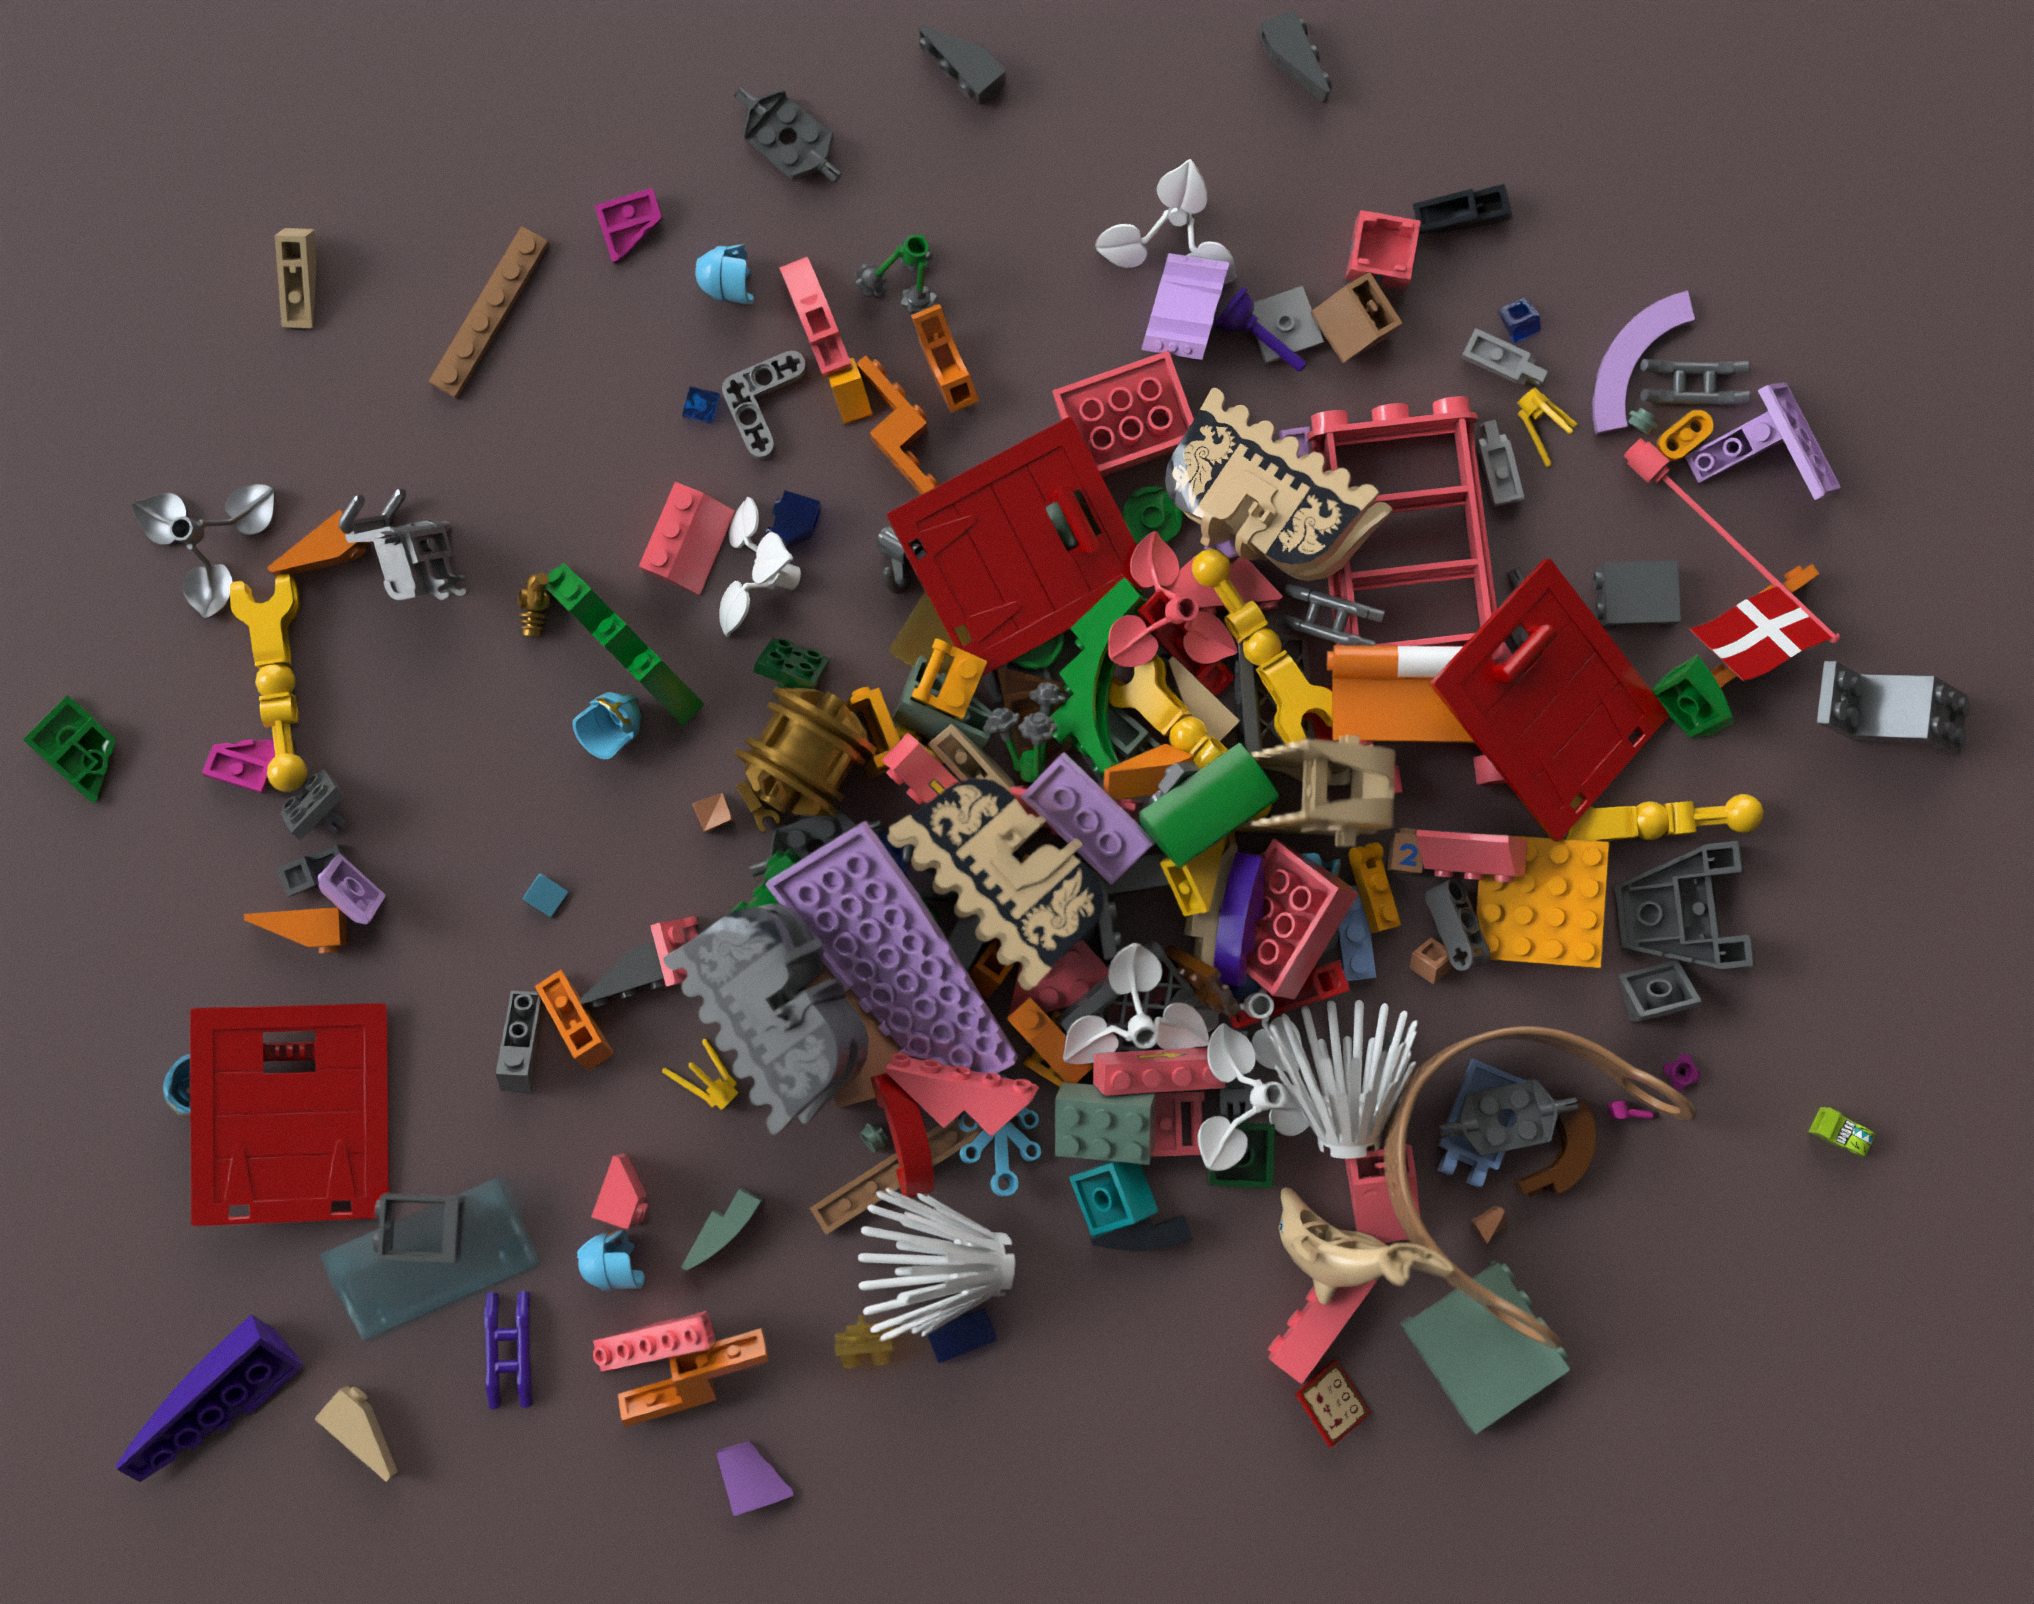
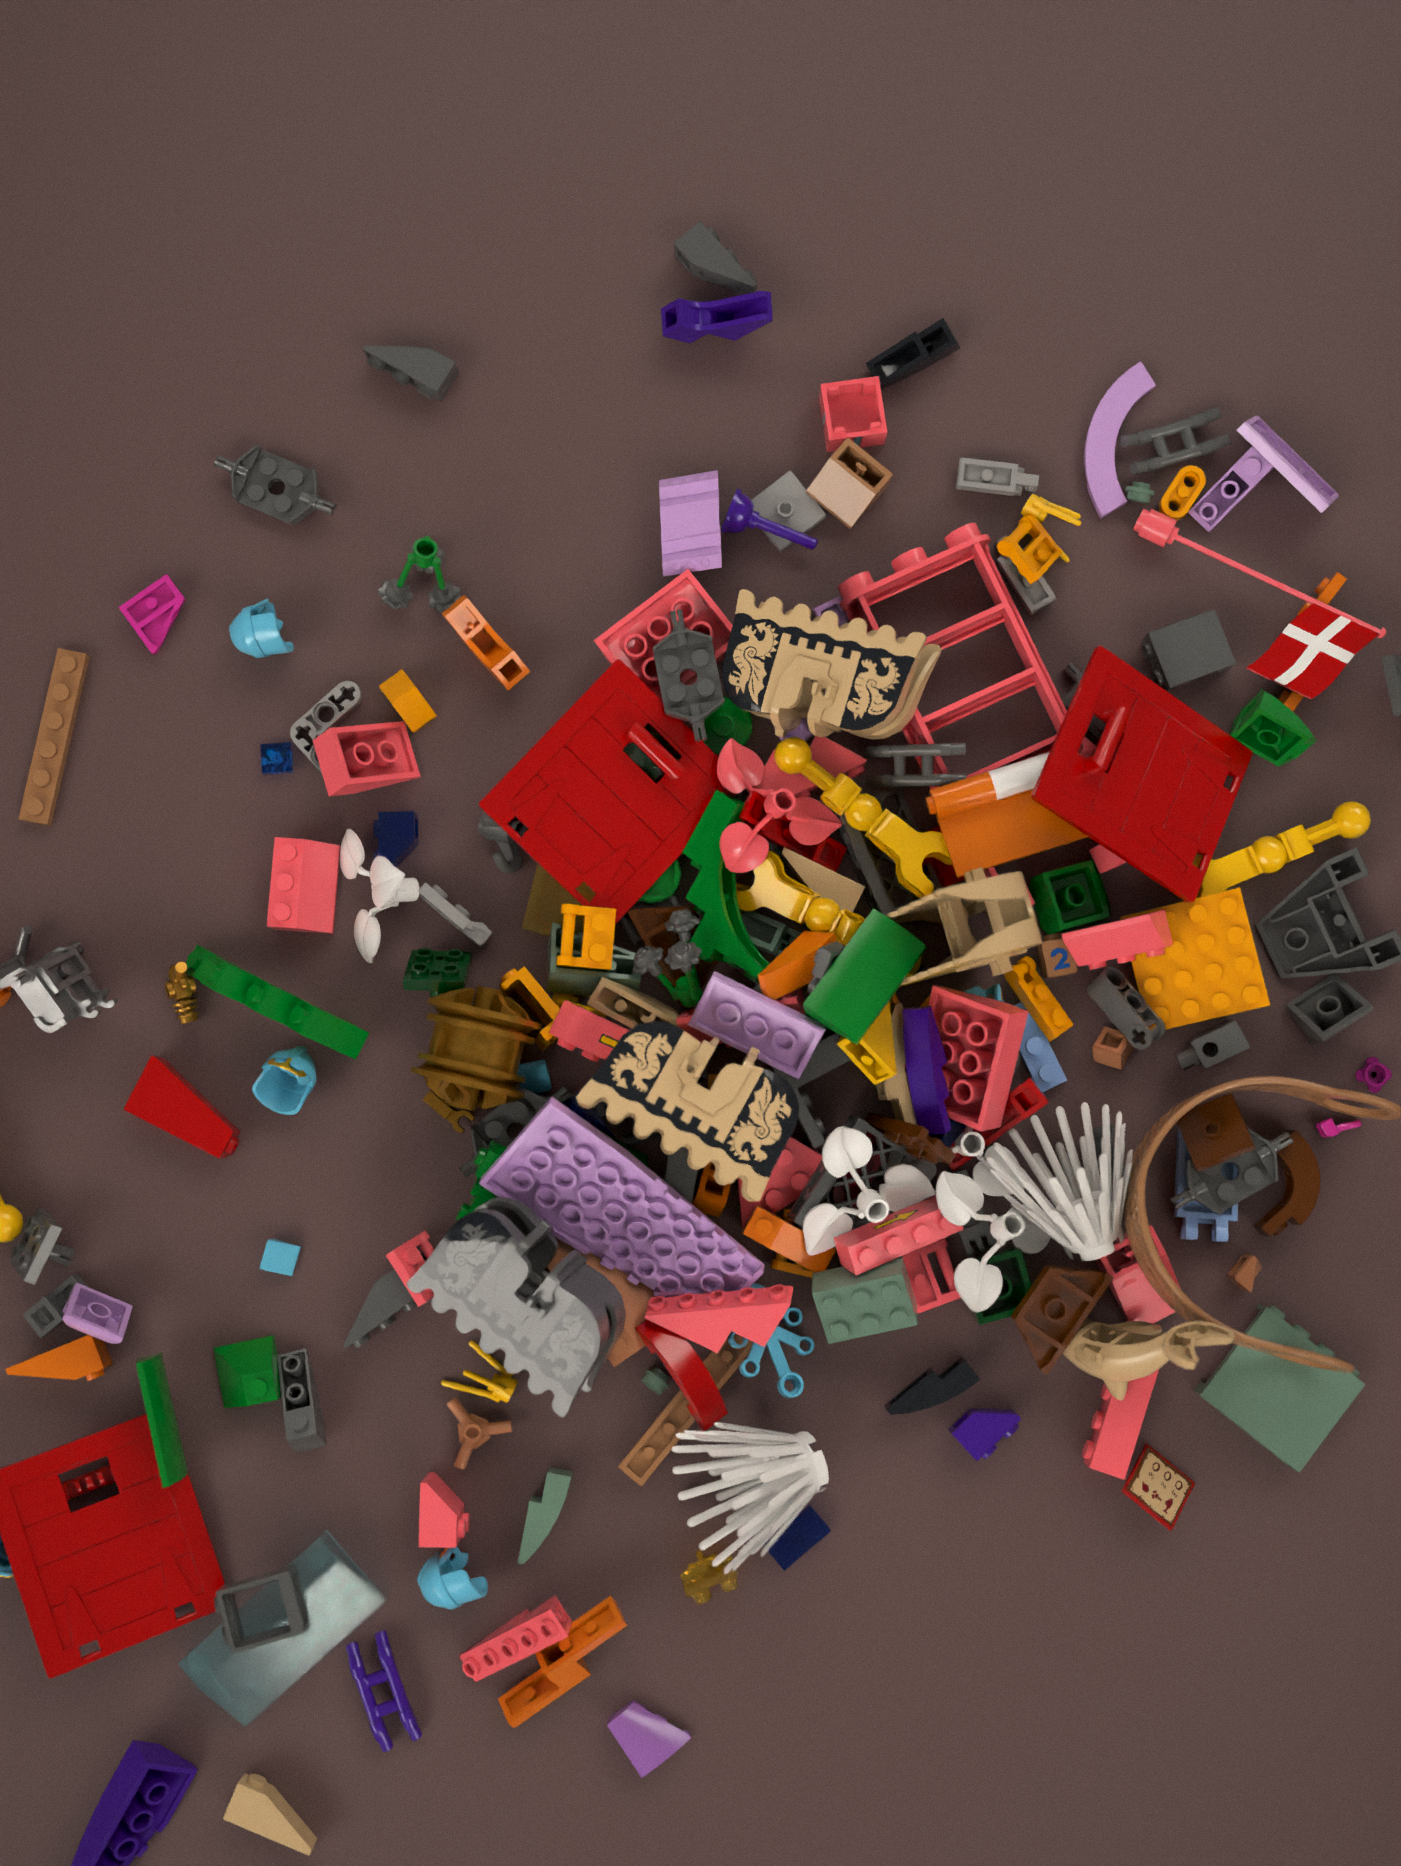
camera: 10 degrees left, 0 degrees up
(381, 1012) = (162, 1419): none -> green slope
(478, 996) = (248, 1372): none -> green slope
(492, 715) = (180, 1109): none -> red slope
(574, 1021) = (344, 1366): orange slope -> none
(679, 1127) = (473, 1431): none -> nougat piece
(713, 812) = (410, 1129): nougat slope -> none
(789, 432) = (365, 757): none -> coral slope
(815, 316) = (355, 643): coral slope -> none
(826, 617) = (457, 915): none -> light grey hinge
(855, 800) = (536, 1076): none -> medium azure slope
(899, 428) = (465, 719): orange bracket -> none
(1113, 1195) = (893, 1362): teal slope -> none
(1139, 431) = (688, 651): none -> dark grey plate
(1178, 1289) = (982, 1428): none -> dark purple slope
(1185, 195) = (655, 421): white plant -> none
(1287, 113) = (724, 318): none -> dark purple arch
(1289, 1195) = (1056, 1310): none -> reddish brown wing
(1439, 798) = (1069, 897): none -> green slope
(1504, 1074) = (1215, 1132): none -> reddish brown plate
(1518, 450) = (1037, 555): none -> light orange plate
(1520, 319) = (997, 436): clear blue slope -> none
(1546, 987) = (1226, 1040): none -> dark grey torso

